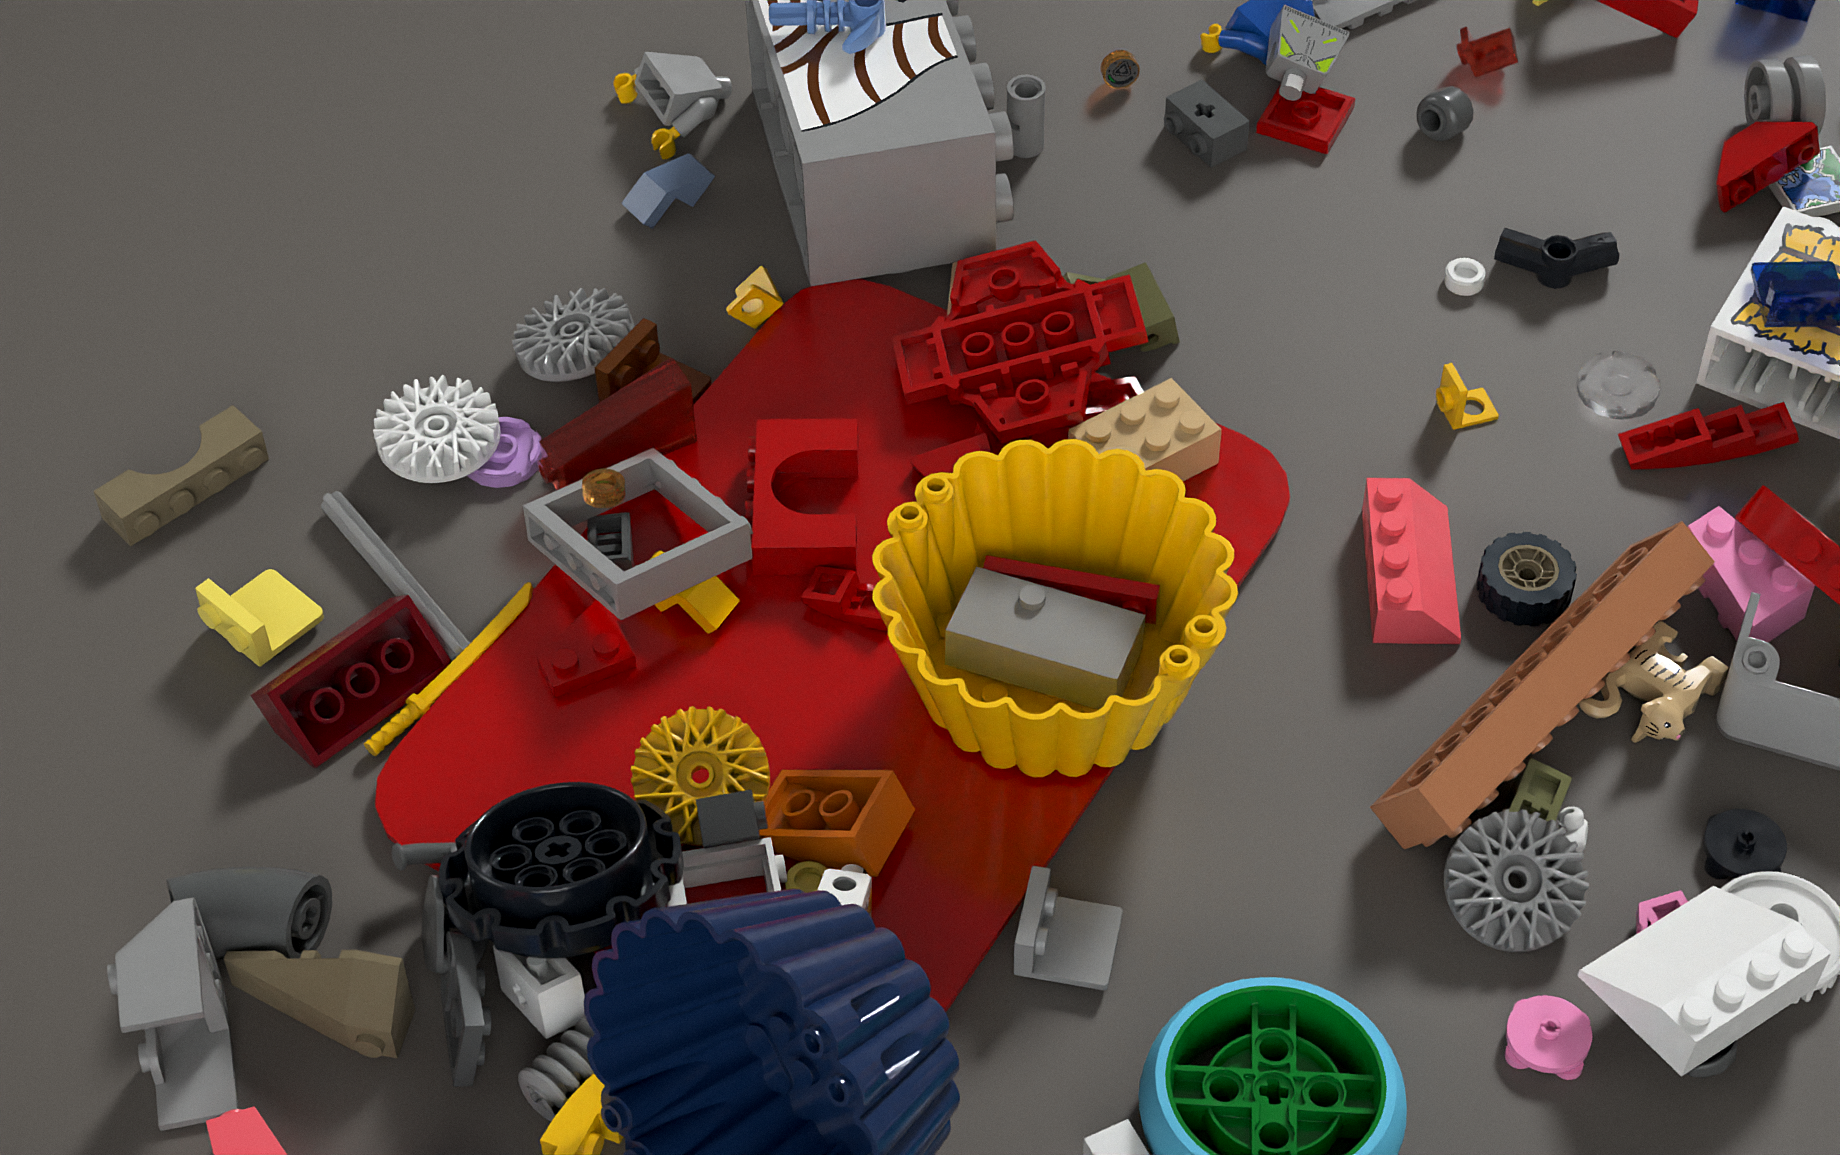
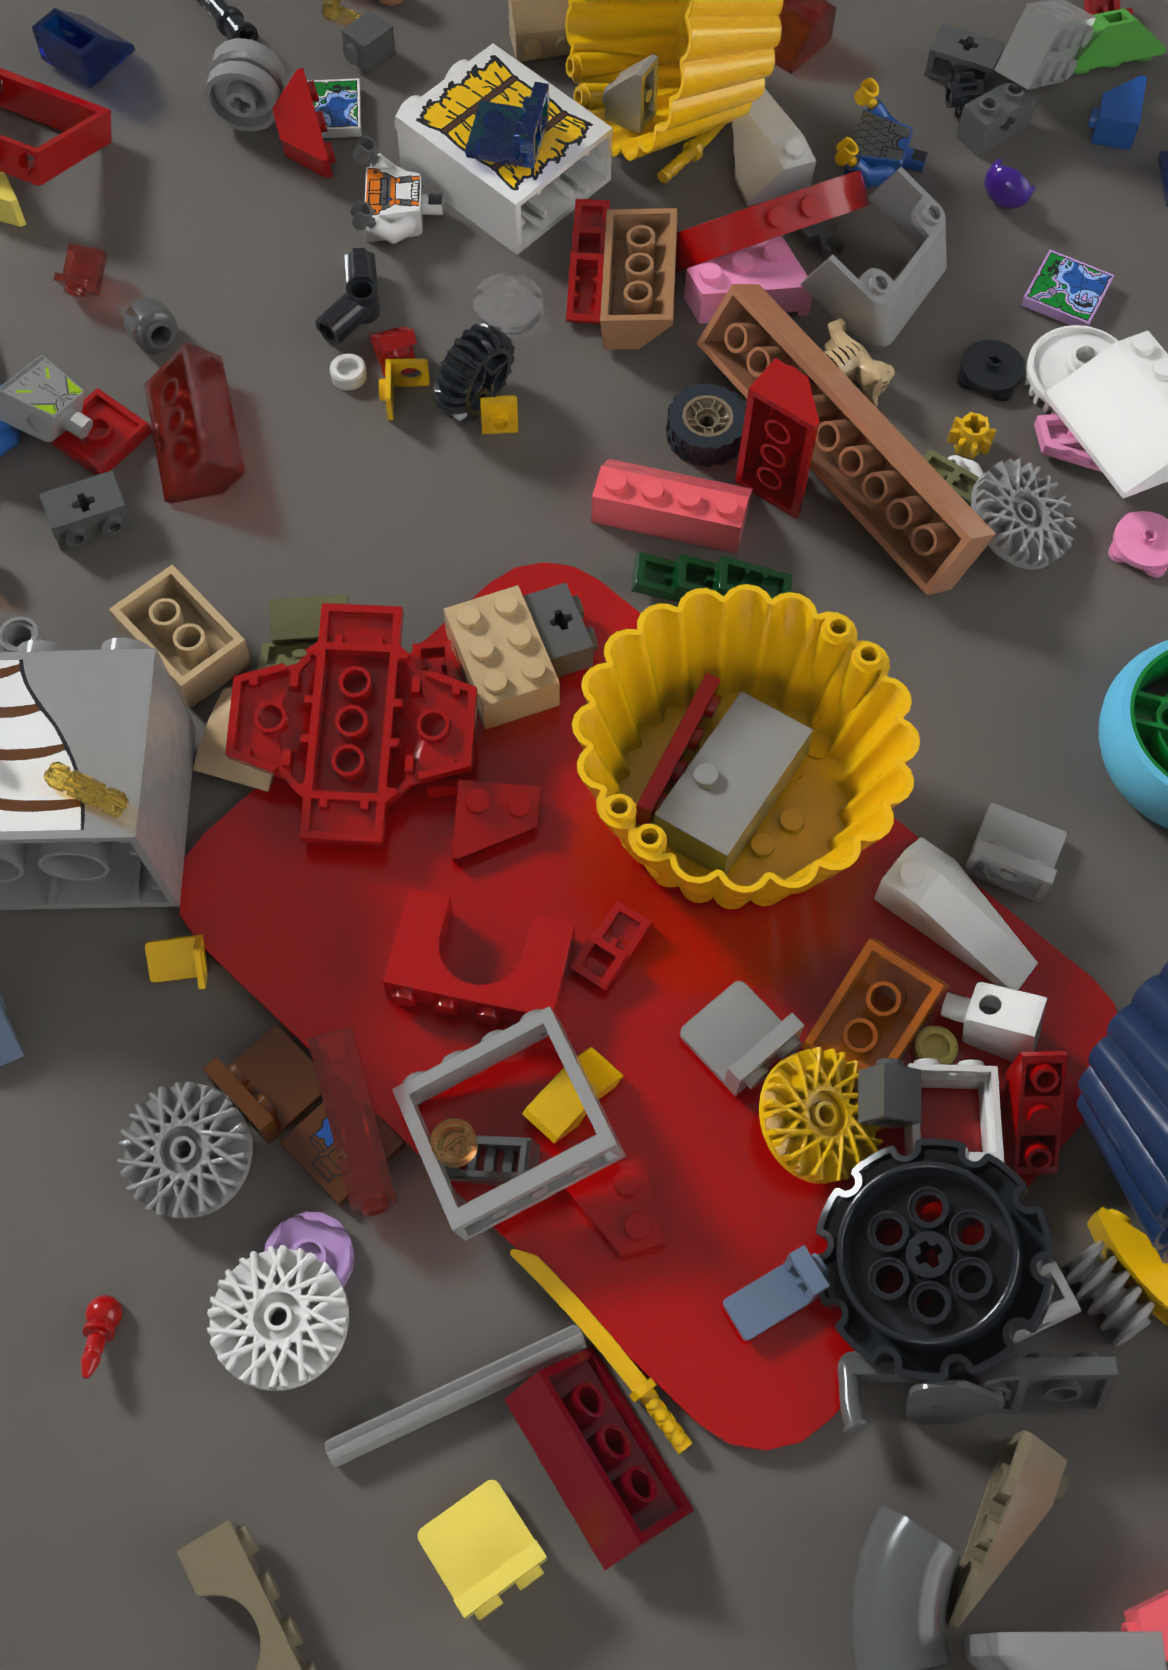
camera: 80 degrees left, 15 degrees up
(426, 332) = (102, 1318): none -> red bar
(510, 772) = (777, 1293): none -> sand blue bracket
(779, 710) = (741, 1037): none -> light grey bracket
(835, 119) = (86, 789): none -> clear yellow axle
(972, 874) = (947, 907): none -> white wedge
(1087, 213) = (187, 632): none -> tan brick
(1209, 475) = (562, 629): none -> dark grey brick
(1317, 618) = (675, 578): none -> dark green slope
(1340, 174) = (193, 426): none -> clear red slope
(1457, 306) = (394, 378): none -> yellow bracket
(1489, 353) = (473, 370): none -> black gear
(1494, 602) = (778, 437): none -> red slope
(1505, 300) = (394, 344): none -> red slope
(1622, 828) = (971, 435): none -> yellow gear
(1690, 461) = (638, 276): none -> medium nougat slope
(1698, 256) = (392, 198): none -> torso

